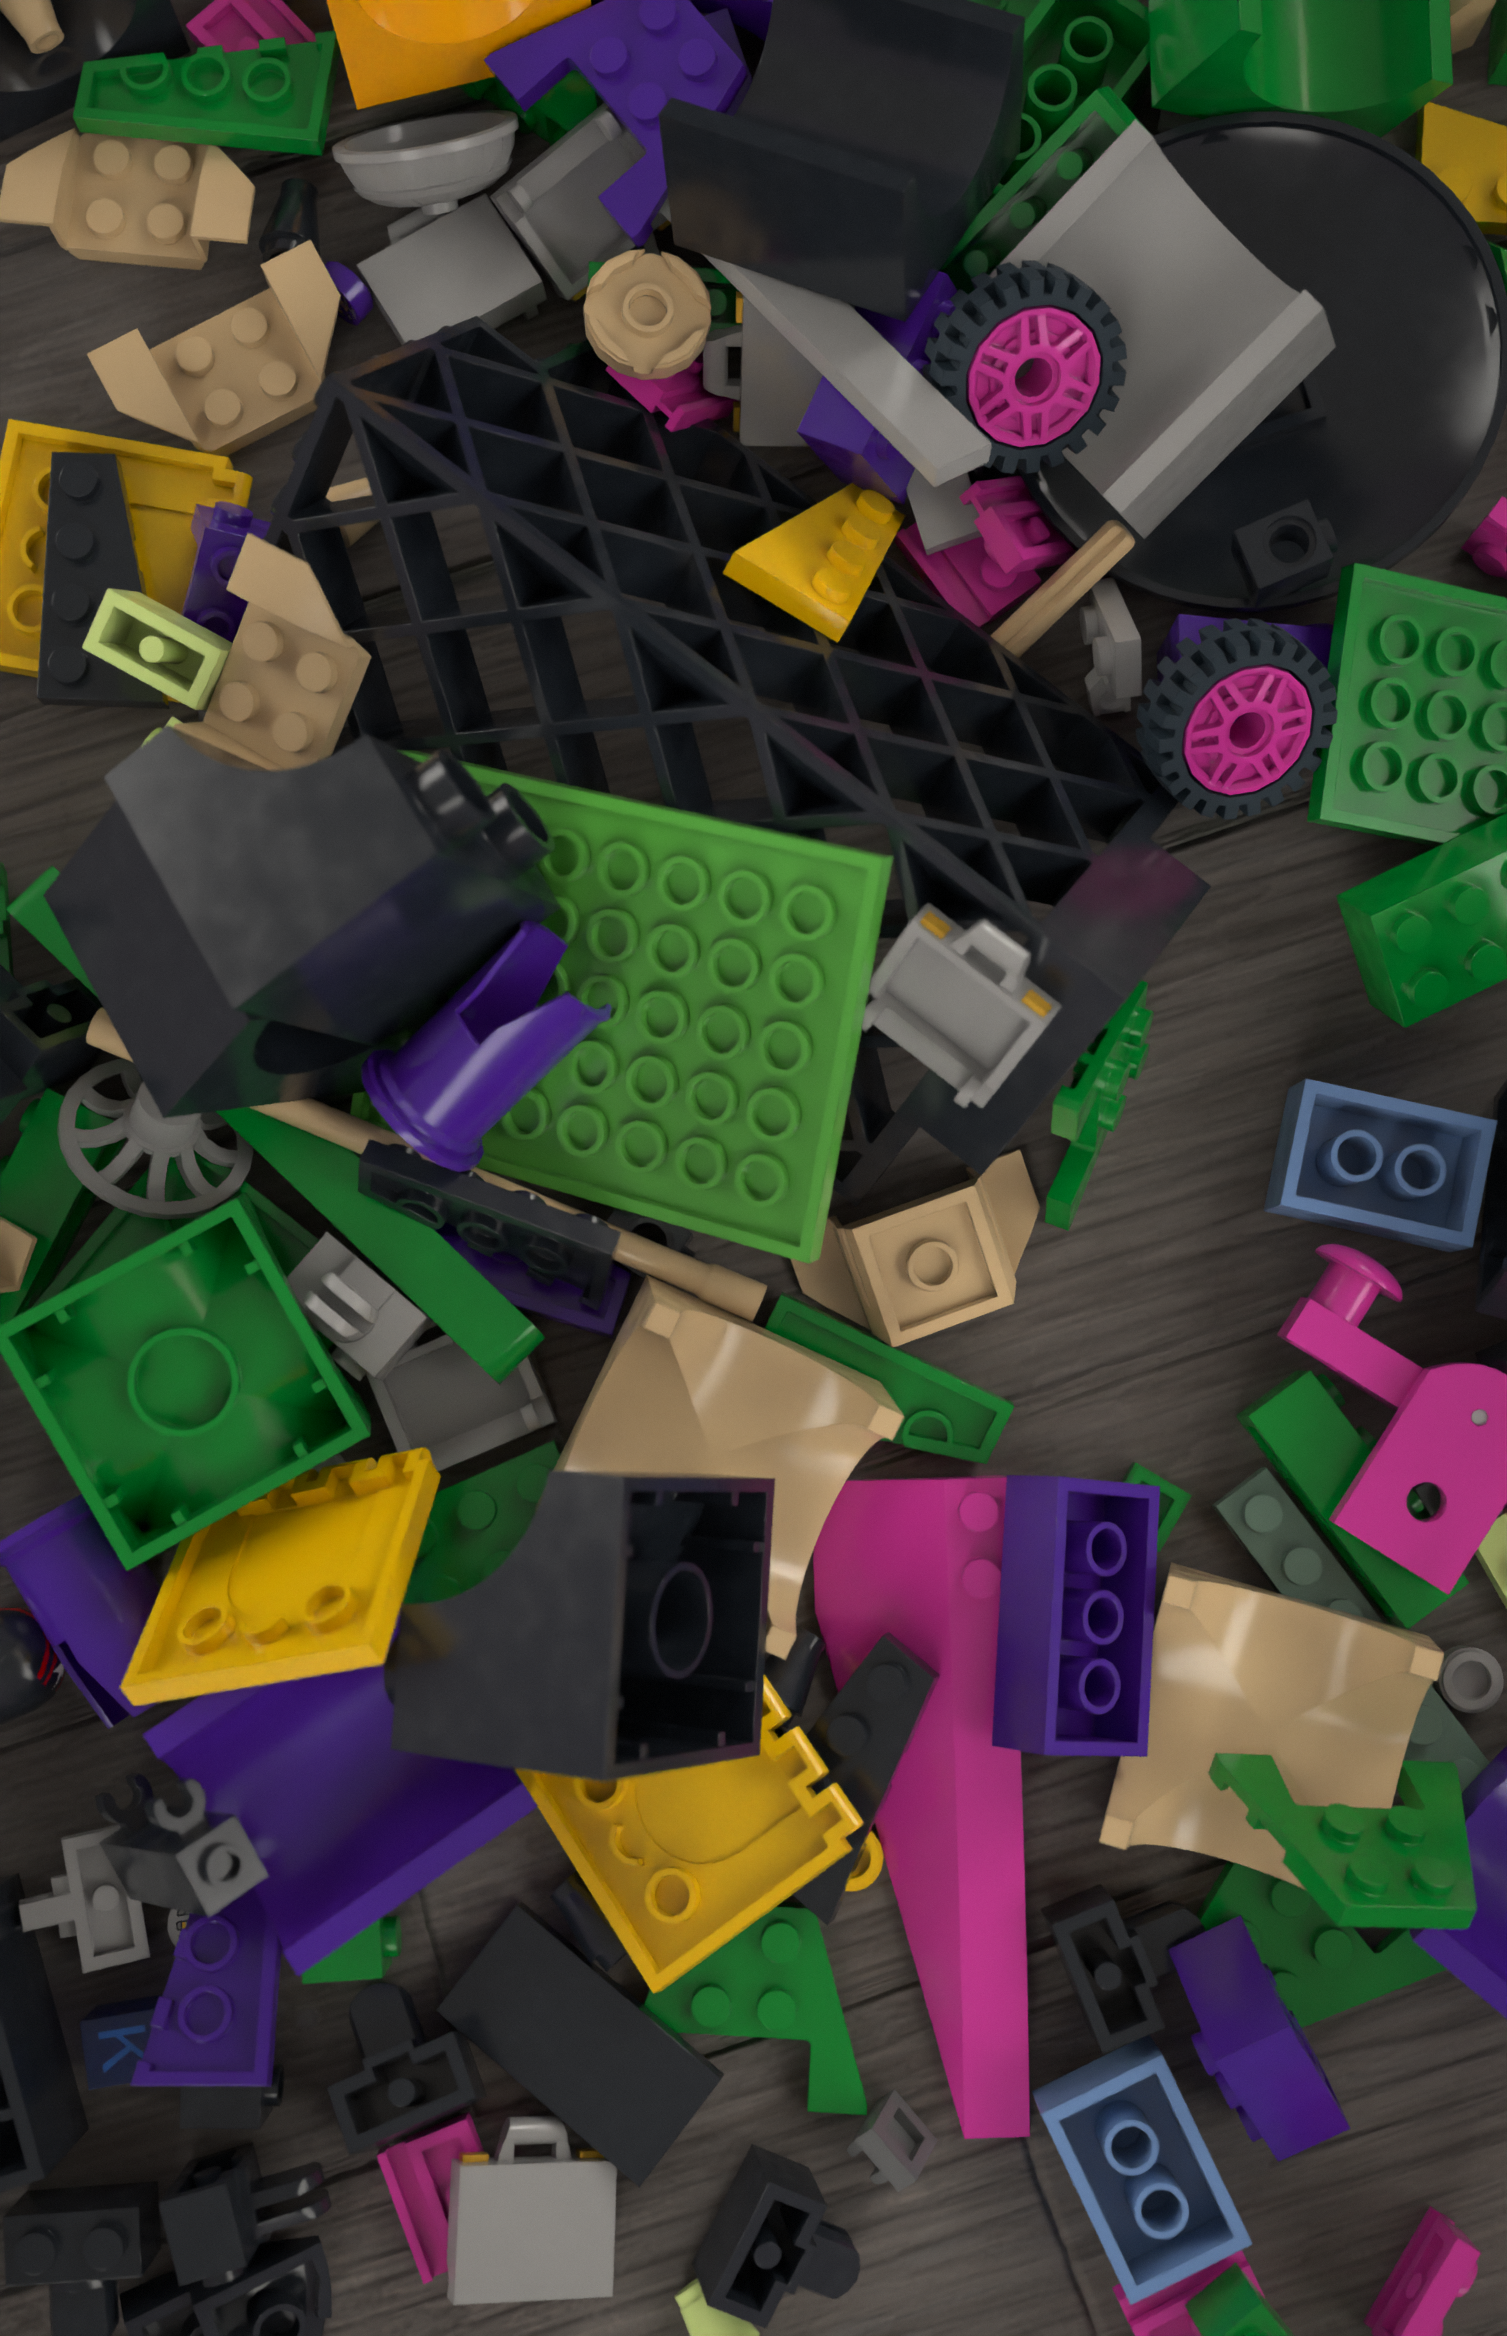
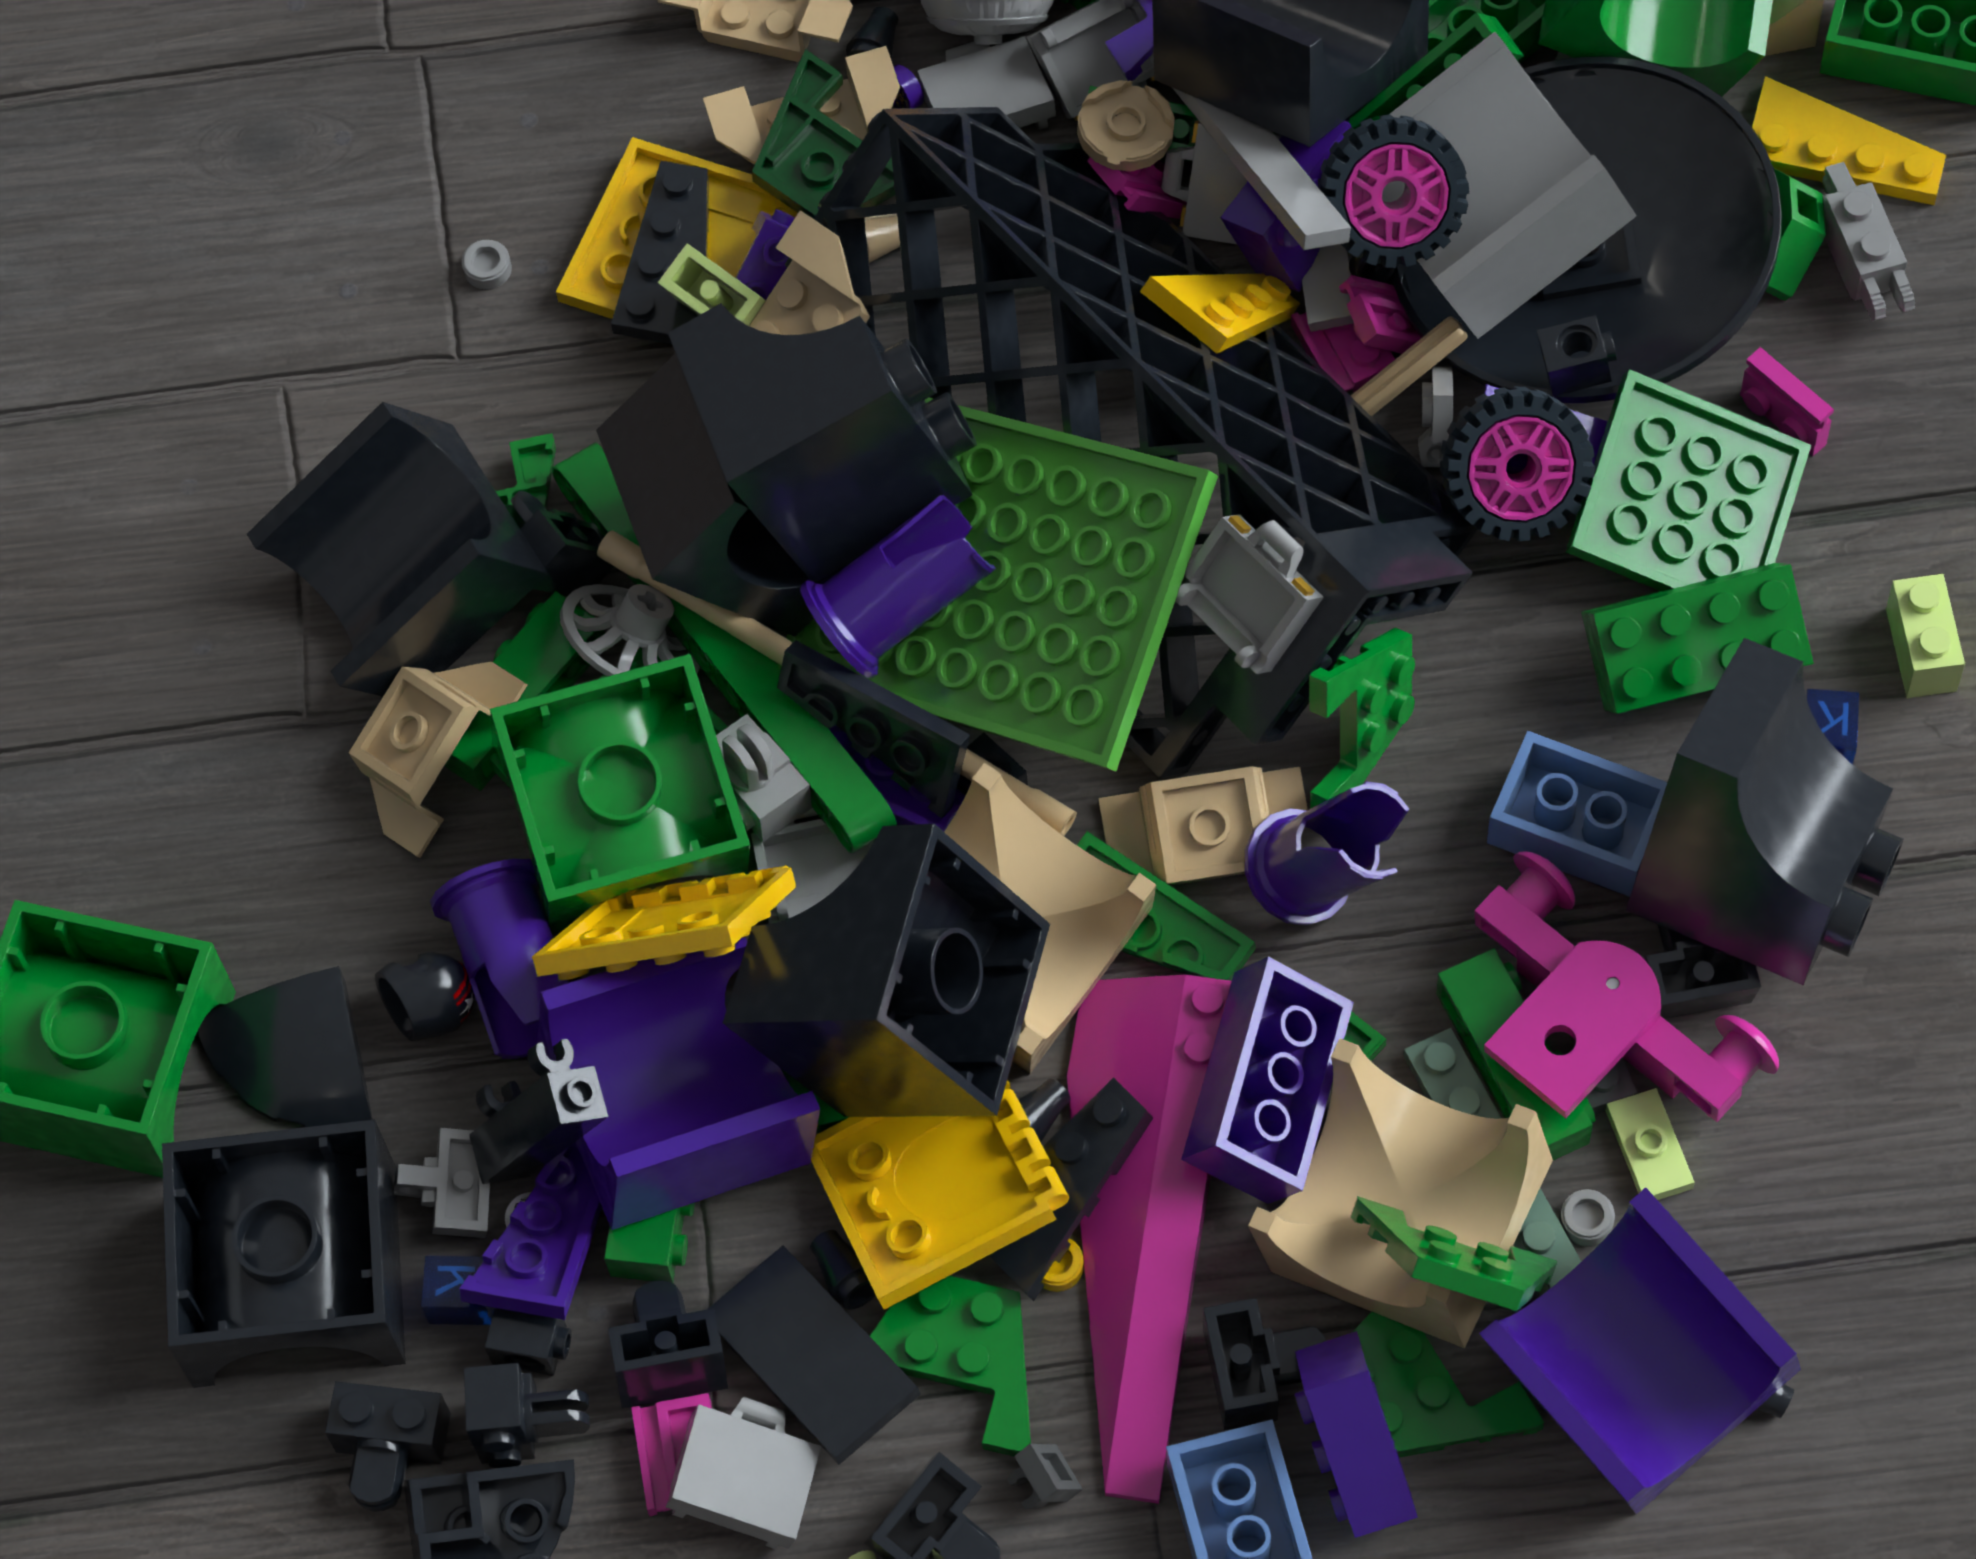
camera: 20 degrees right, 20 degrees down
(235, 407) = (808, 148): none -> dark green wing
(1030, 1289) = (1315, 881): none -> dark purple piece

